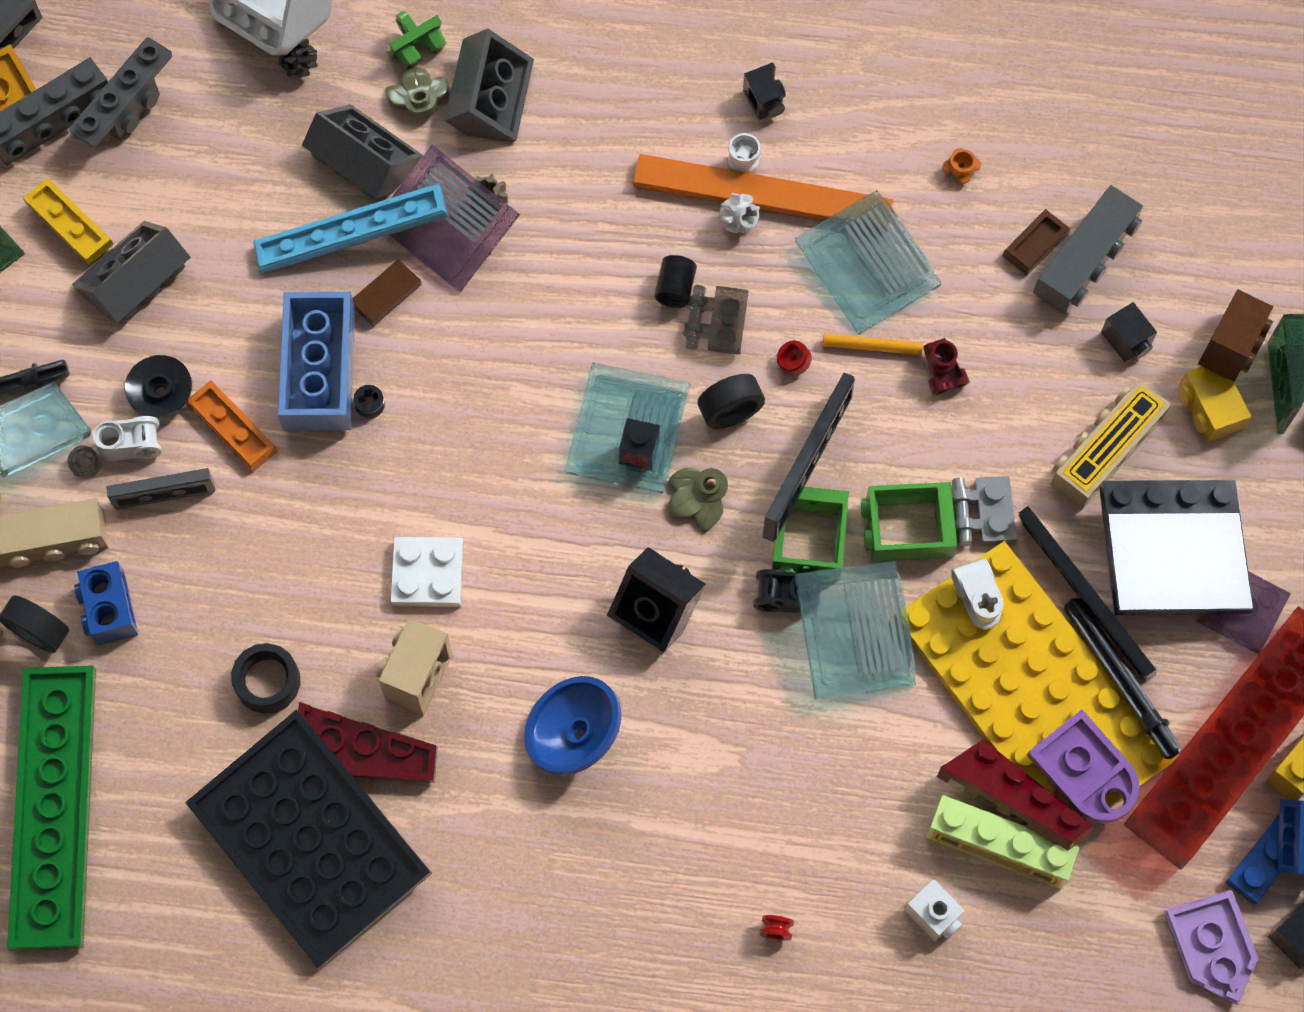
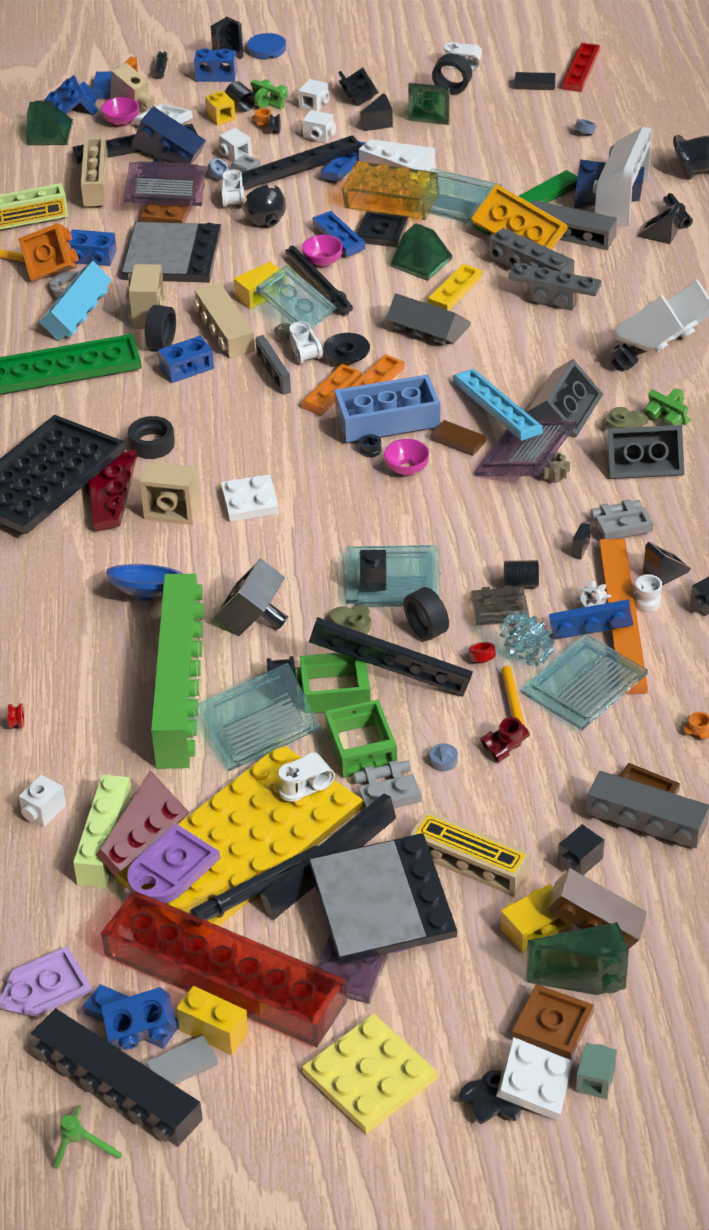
camera: 80 degrees right, 25 degrees down
(228, 367) = (383, 370): none -> orange tile
(418, 346) = (409, 452): none -> dark pink piece
(612, 147) = (622, 519): none -> light grey plate
(634, 201) = (581, 541): none -> black tile
(699, 125) = (663, 564): none -> black slope
(760, 709) = (177, 672): none -> bright green brick
(784, 225) = (591, 619): none -> blue plate
(806, 299) = (527, 638): none -> clear light blue gear
(950, 440) = (443, 757): none -> sand blue tile

